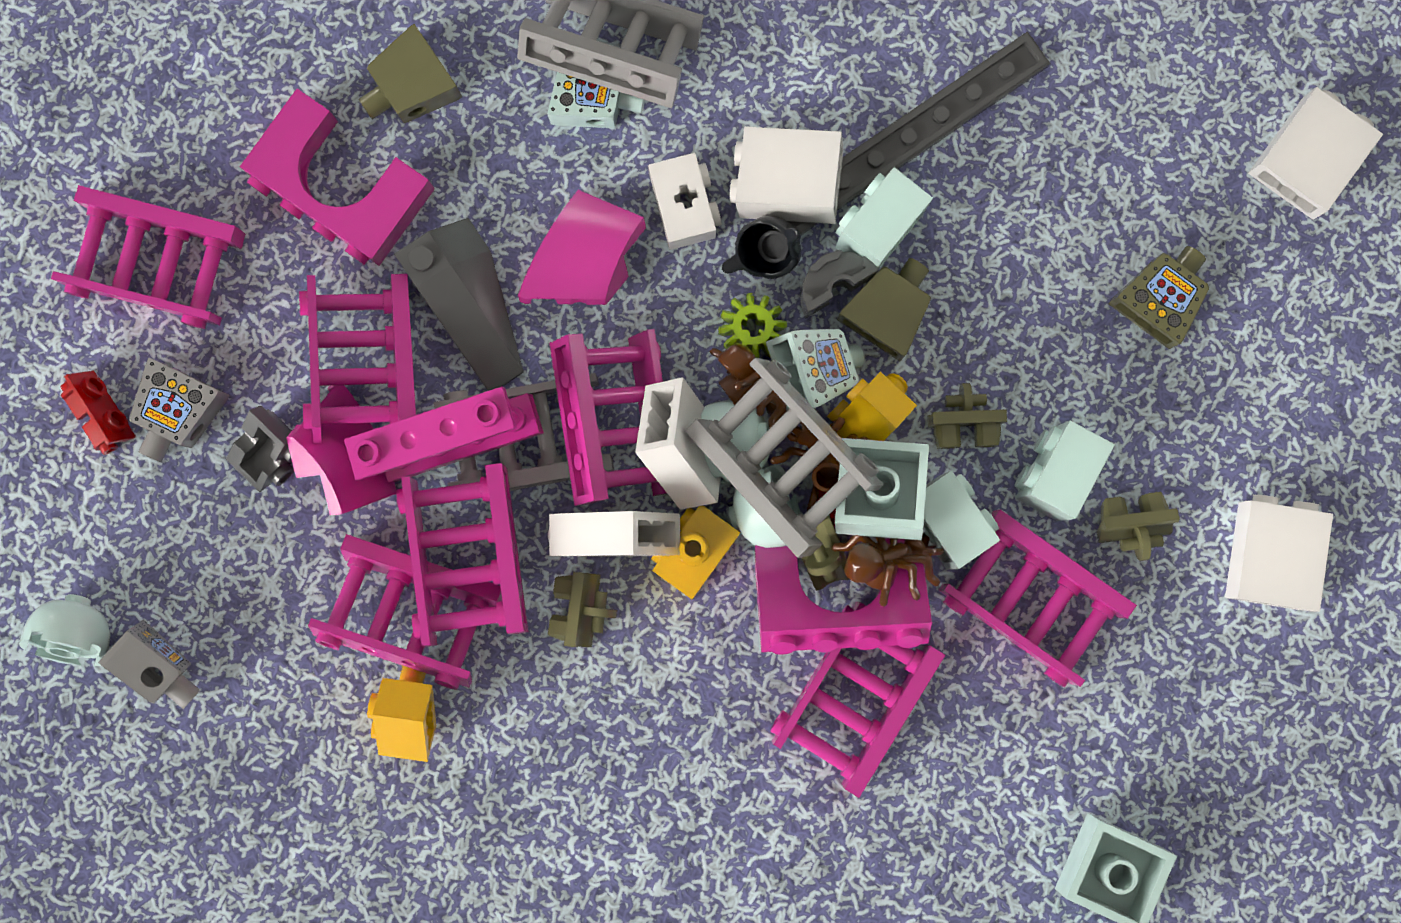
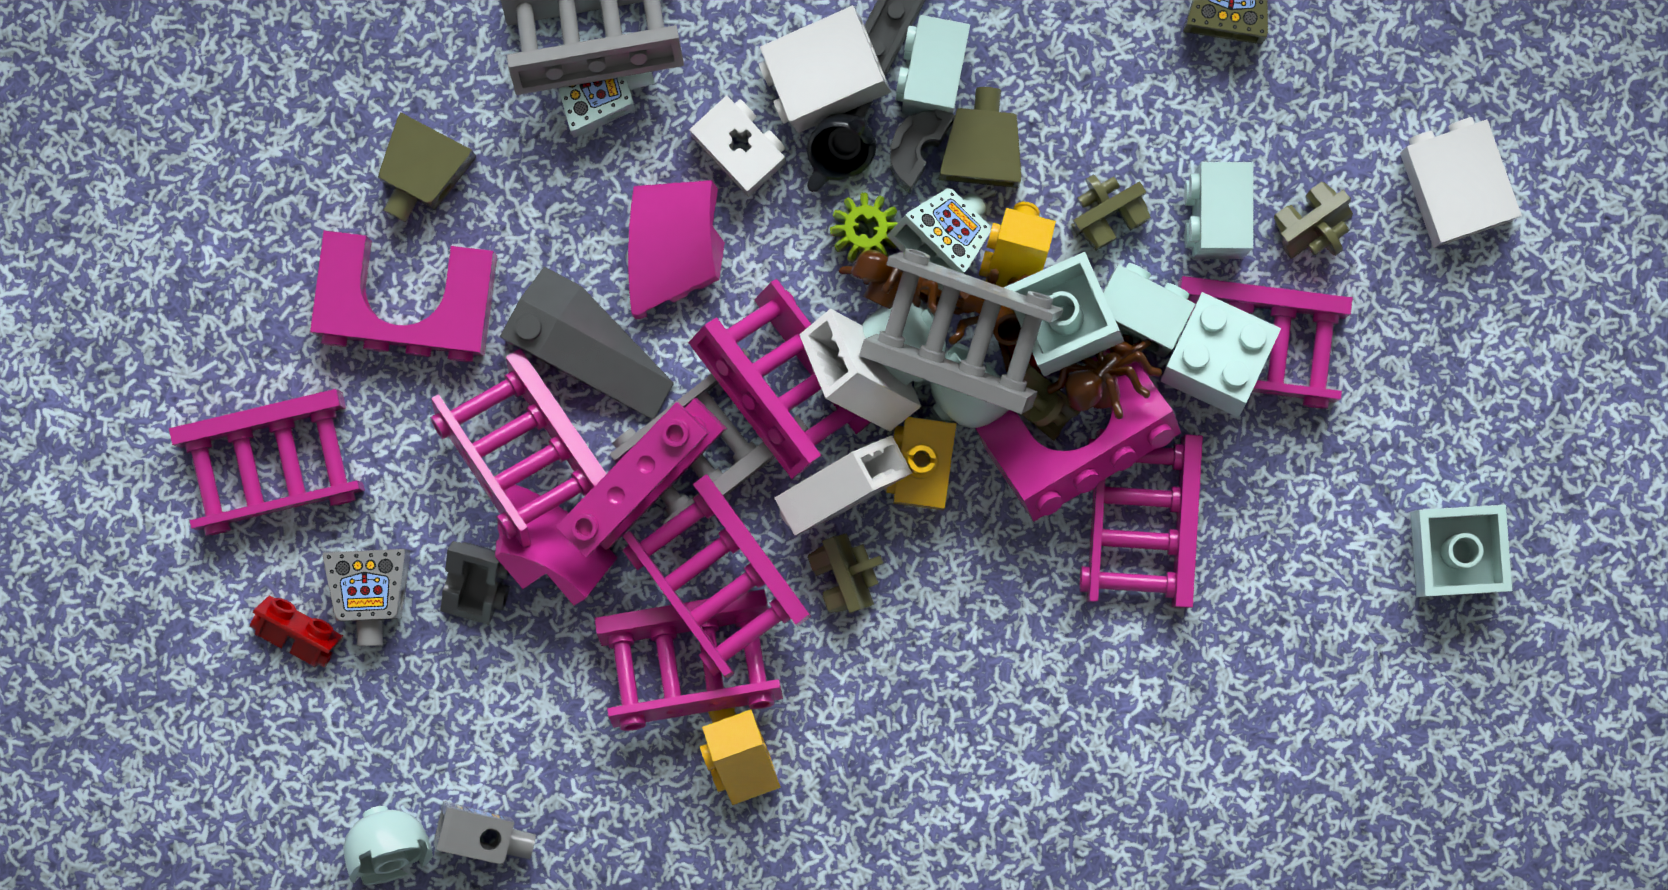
camera: 25 degrees left, 0 degrees up
(998, 595) = (1220, 354): none -> light aqua brick

